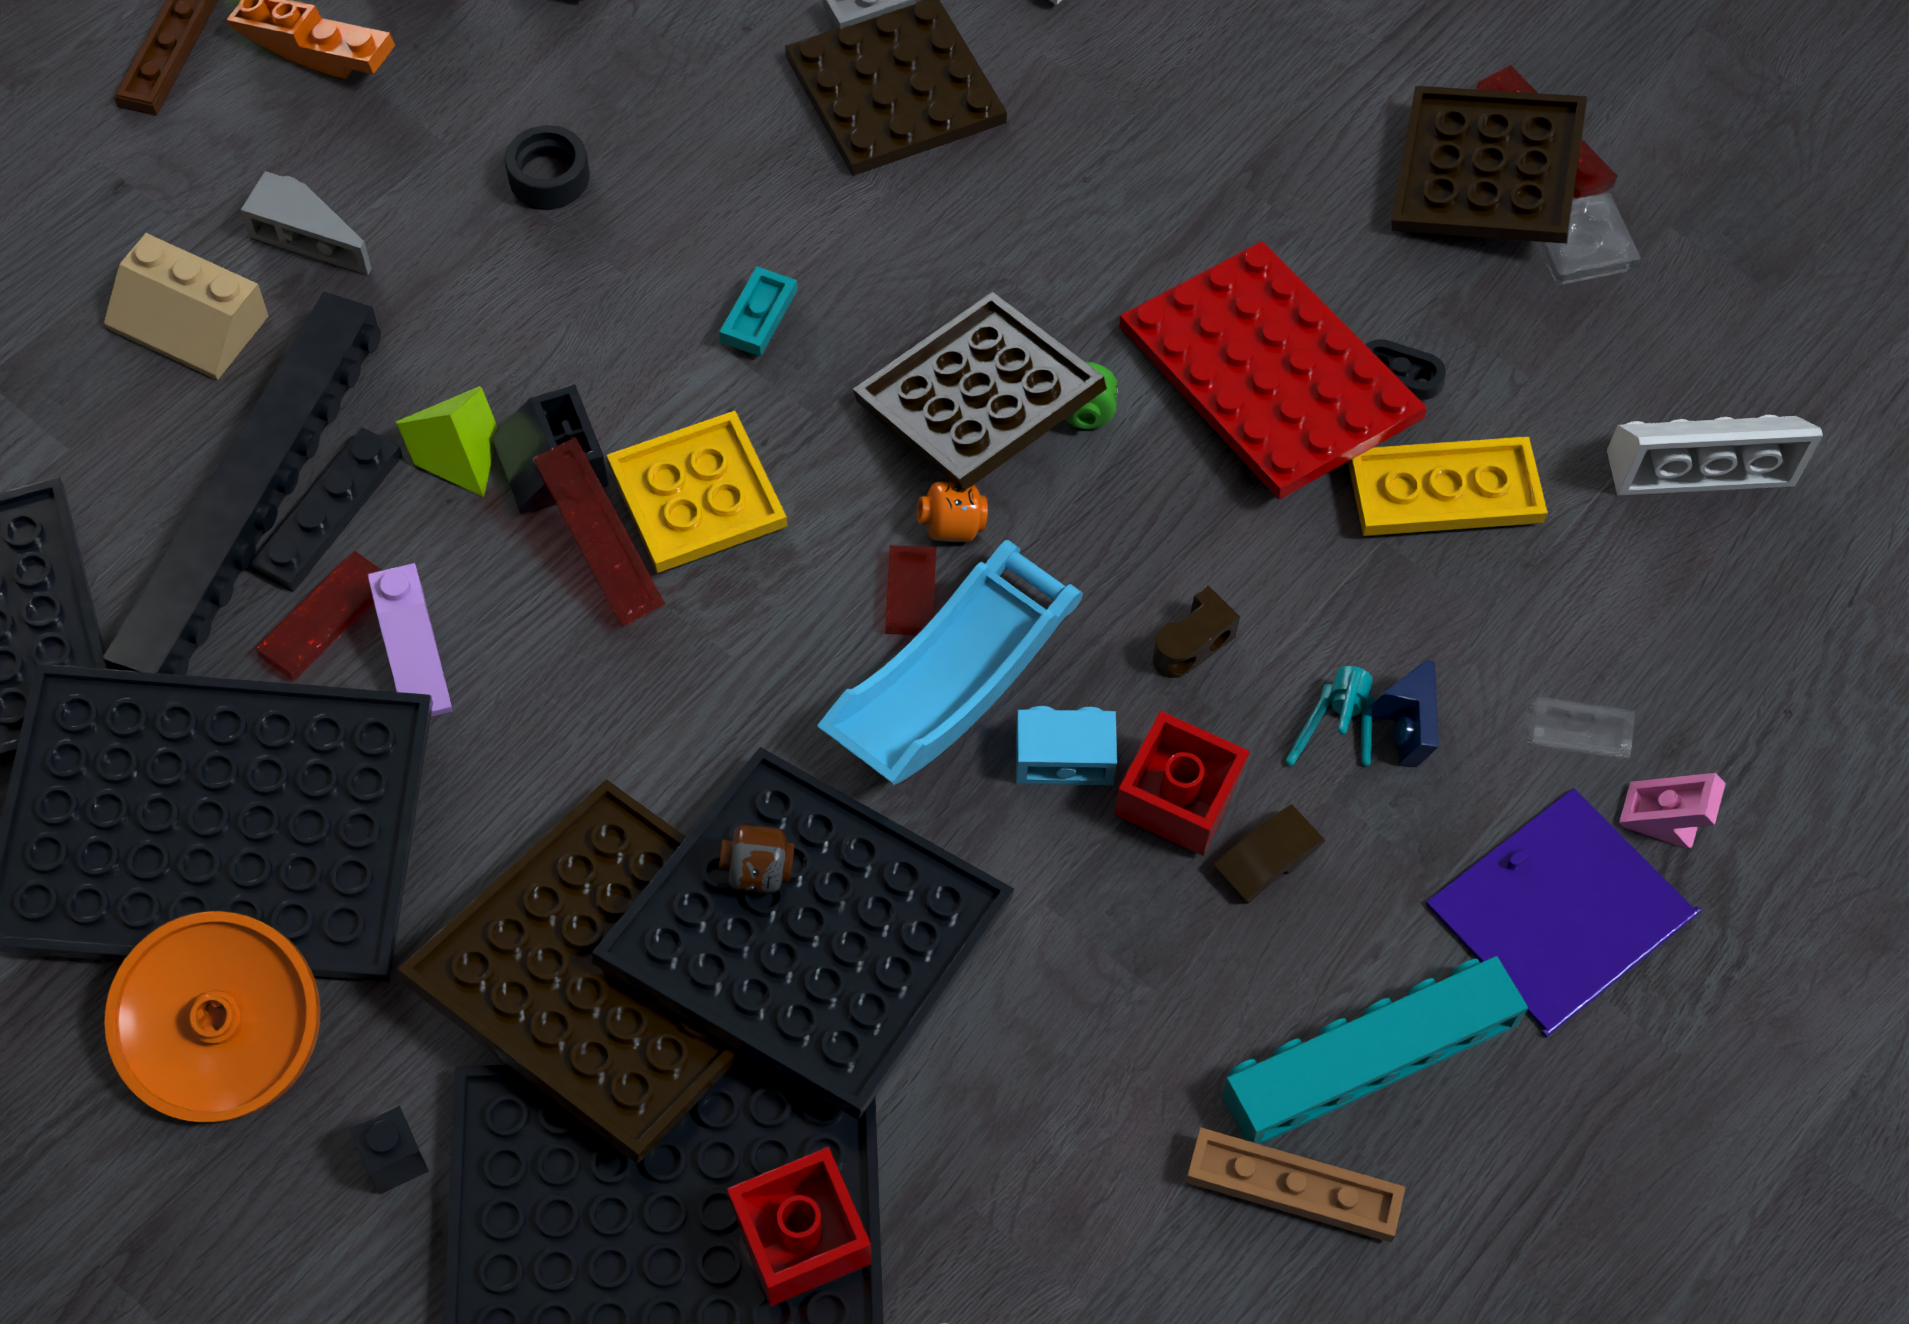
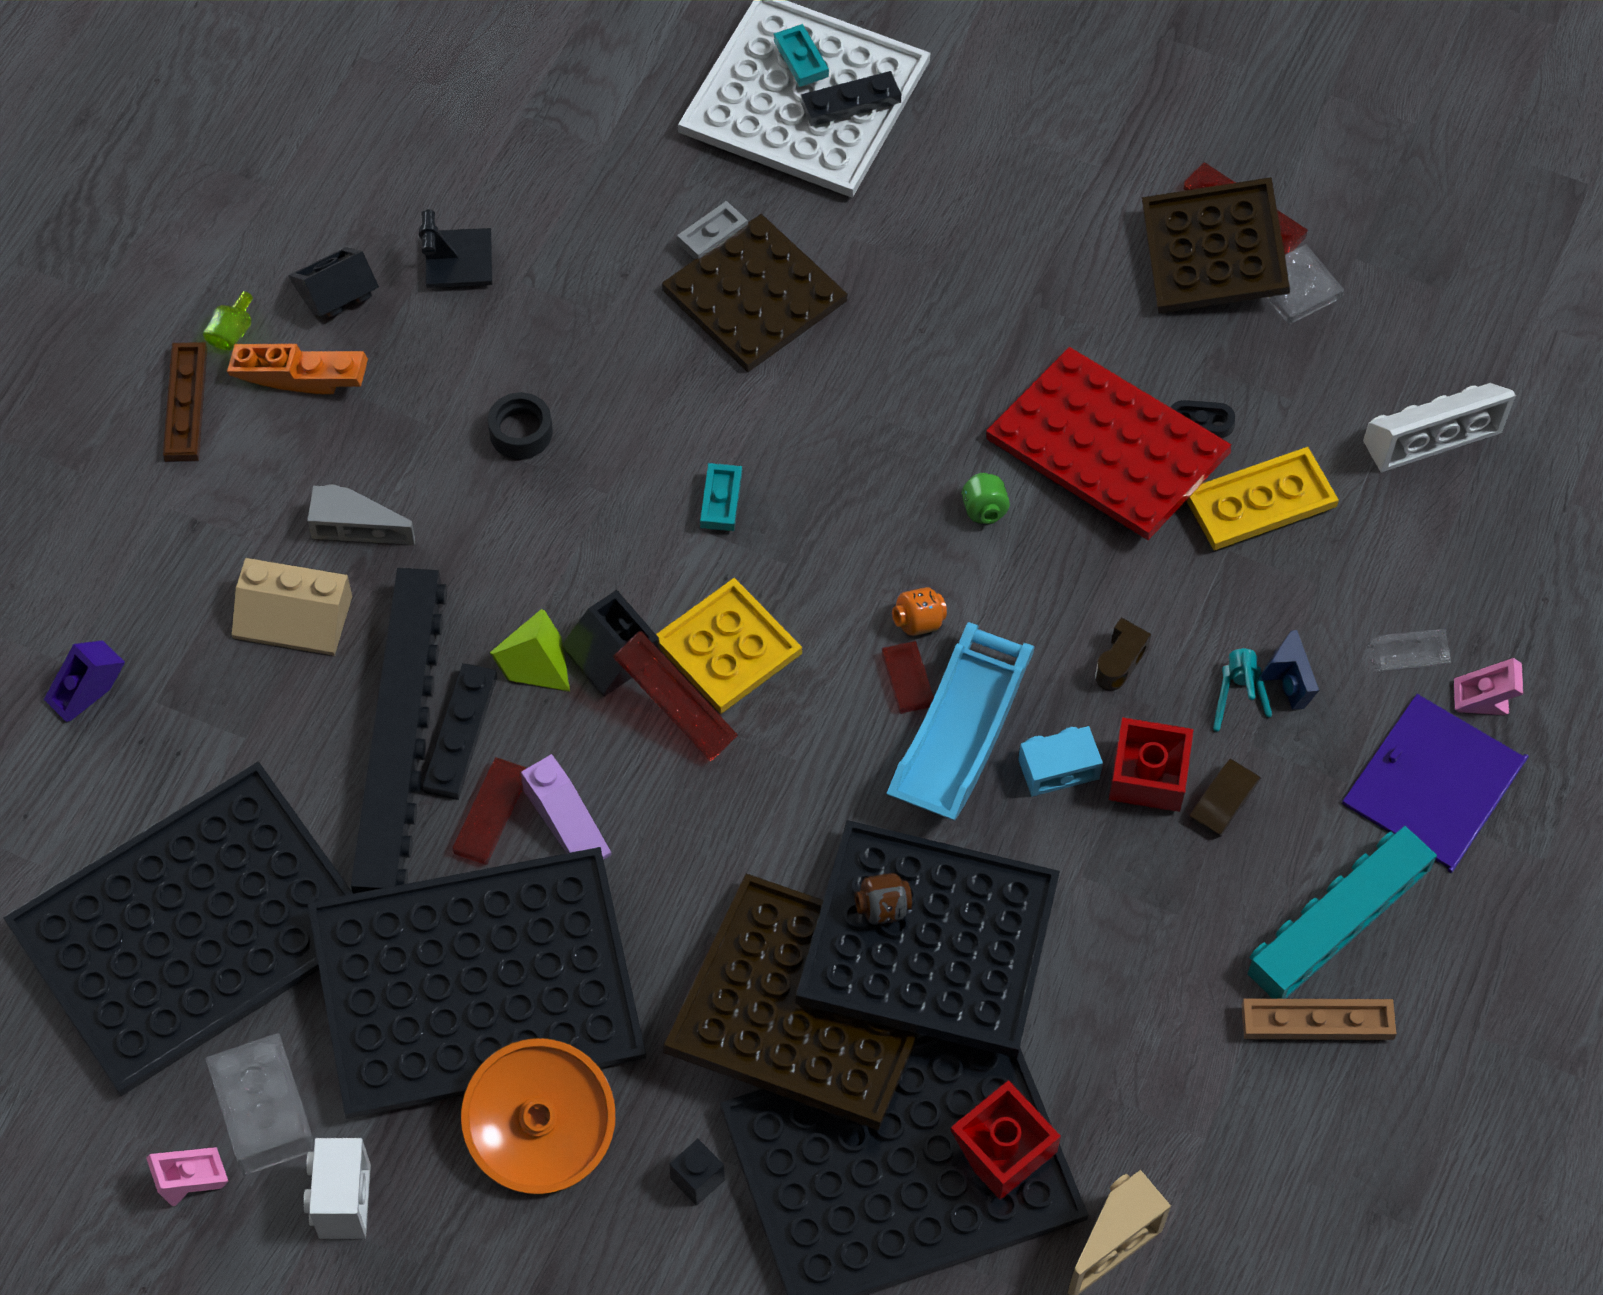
camera: 15 degrees left, 0 degrees up
(979, 390) = (908, 516): plate -> none

